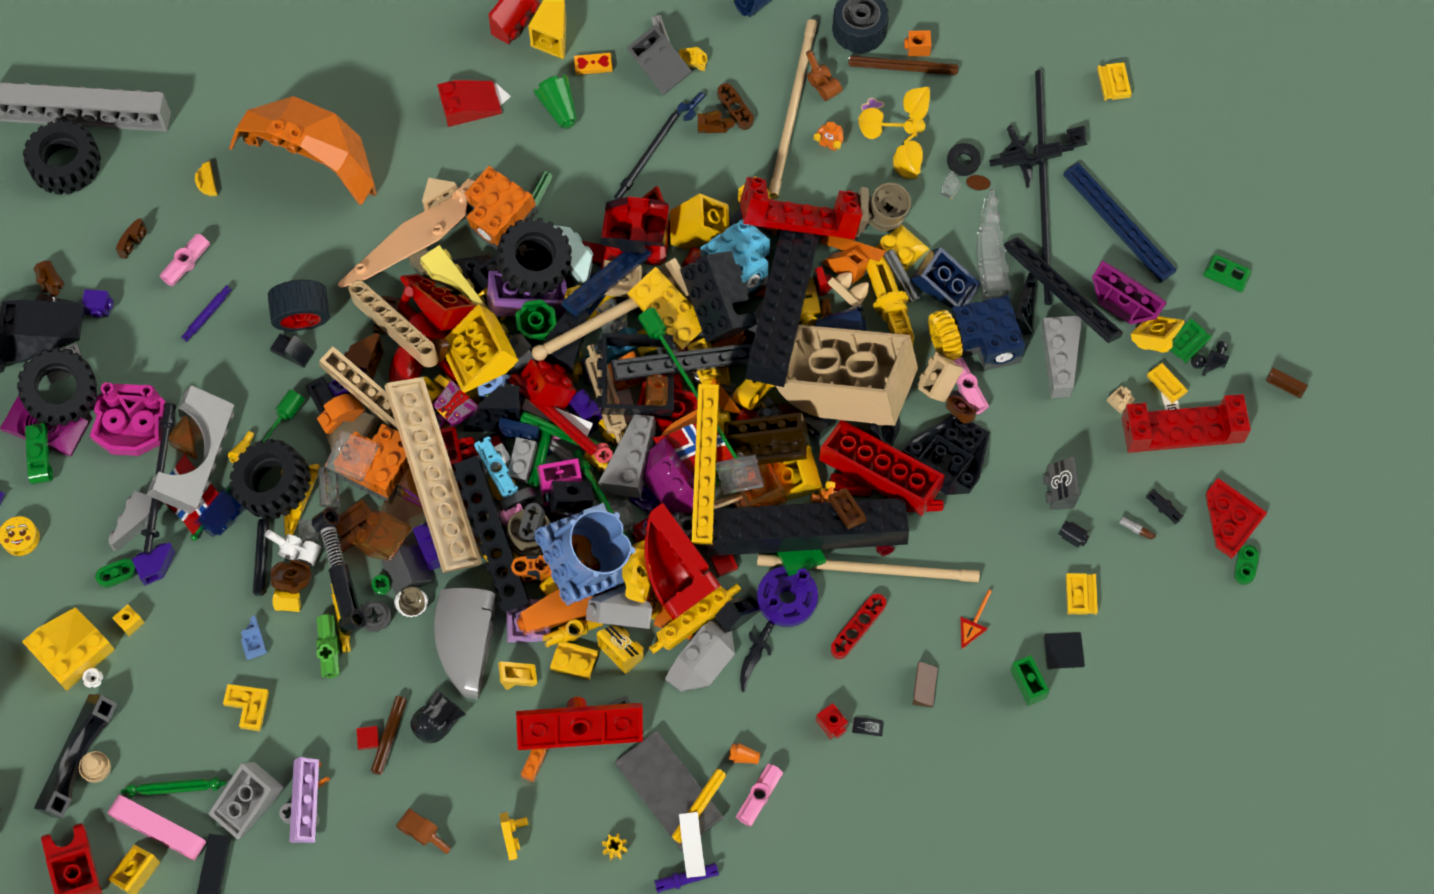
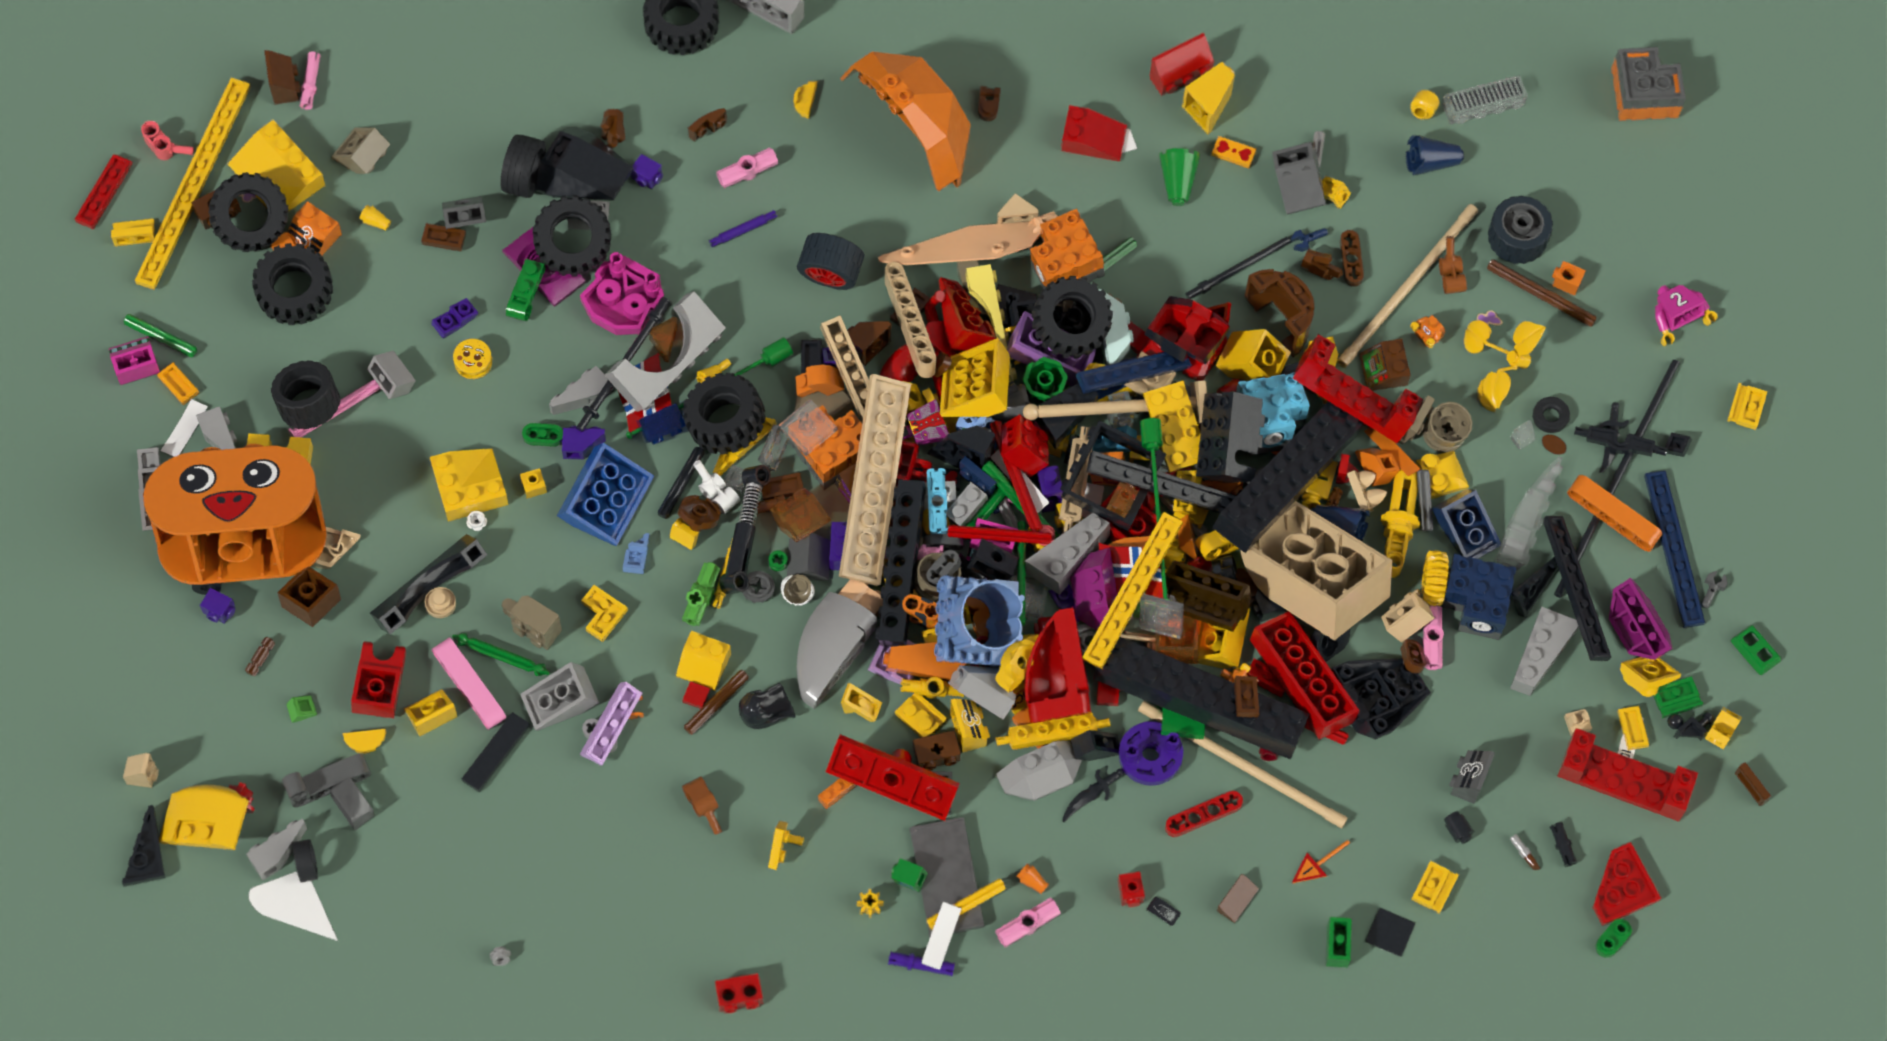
camera: 25 degrees right, 0 degrees up
(188, 743) = (533, 620): none -> dark tan hinge
(198, 599) = (605, 494): none -> blue slope
(292, 350) = (805, 300): black slope -> none
(359, 704) = (703, 660): none -> yellow slope
(368, 119) = (987, 108): none -> reddish brown plate
(472, 579) = (863, 595): none -> light nougat brick
(564, 470) = (999, 534): none -> red axle
(606, 674) = (945, 743): none -> reddish brown brick
(636, 804) = (909, 875): none -> green brick
(703, 159) = (1290, 297): none -> reddish brown cylinder
(810, 180) = (1385, 365): none -> reddish brown slope
(1019, 27) = (1678, 307): none -> dark pink torso
(1058, 214) = (1614, 513): none -> orange beam
(1167, 239) = (1713, 588): none -> dark grey bar
(1239, 348) = (1723, 728): none -> yellow brick

